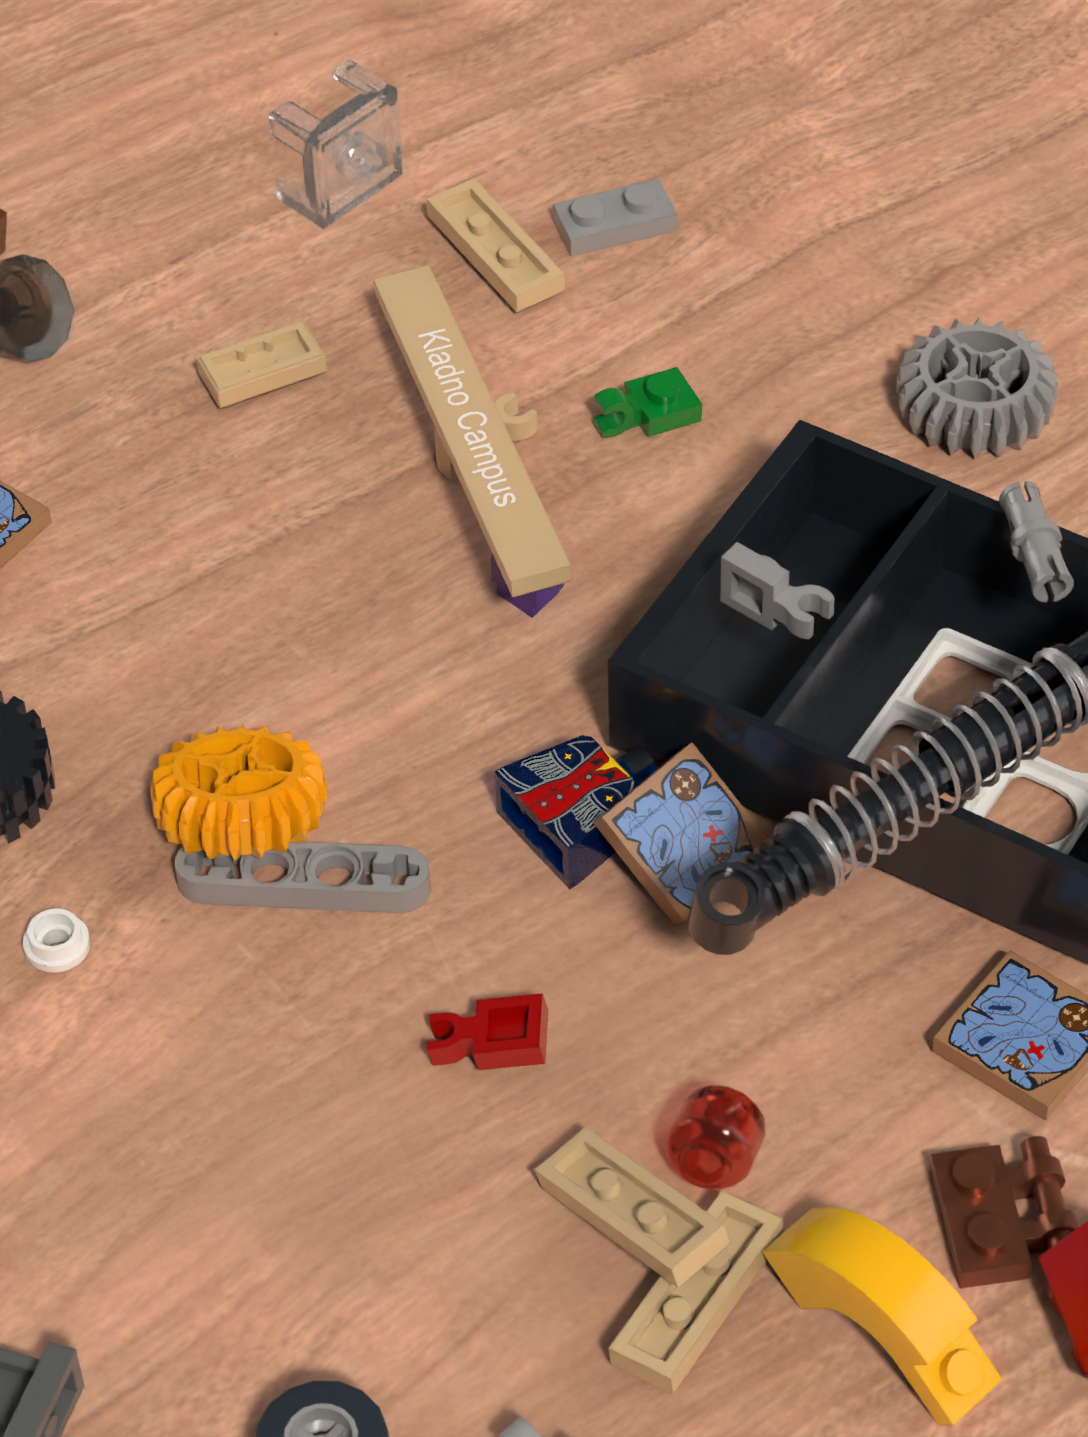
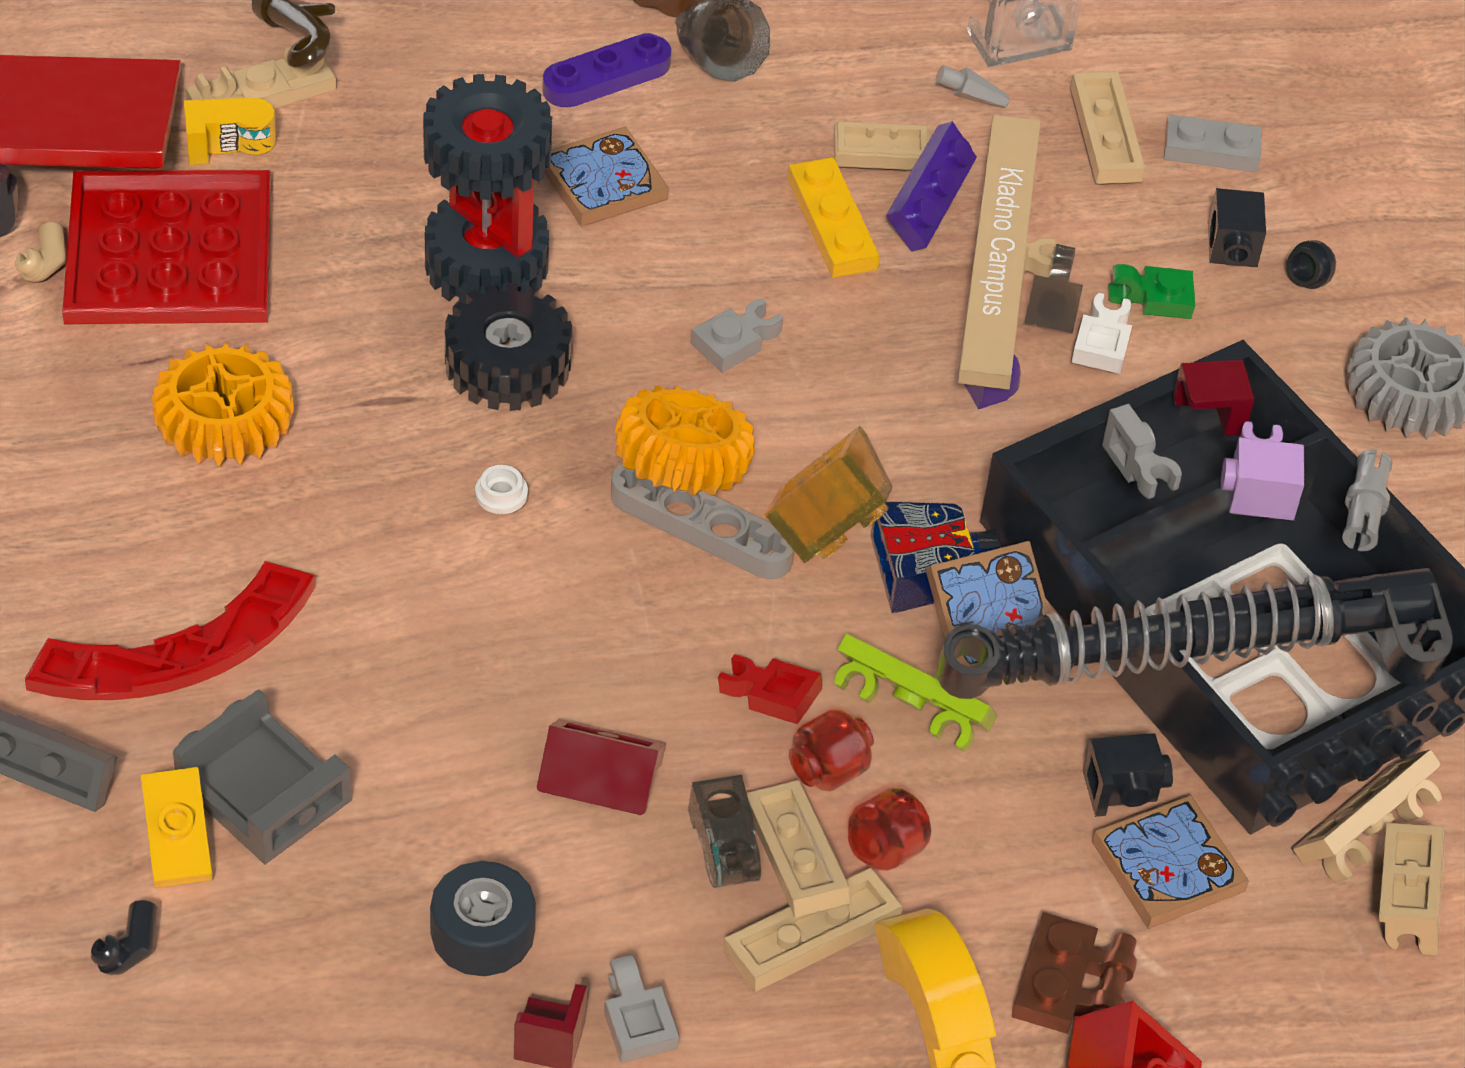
camera: 20 degrees right, 0 degrees up
(218, 652) = (731, 338): none -> light grey plate
(251, 467) = (833, 217): none -> yellow plate
(321, 257) = (971, 86): none -> light grey bar
(344, 387) = (931, 186): none -> dark purple plate
(353, 1213) = (599, 766): none -> dark red panel
(442, 786) = (831, 497): none -> clear yellow slope
(539, 1224) = (725, 831): none -> clear smoke leg
(550, 457) = (1054, 299): none -> clear smoke plate
(601, 1076) = (831, 750): none -> clear red head
(624, 481) = (1103, 337): none -> white plate
(648, 964) = (912, 689): none -> lime plate
(697, 299) = (1236, 227): none -> black brick
(798, 308) = (1311, 264): none -> black plate
(815, 484) = (1217, 386): none -> dark red panel
(917, 559) = (1264, 475): none -> lavender brick
(928, 956) = (1125, 771): none -> black brick

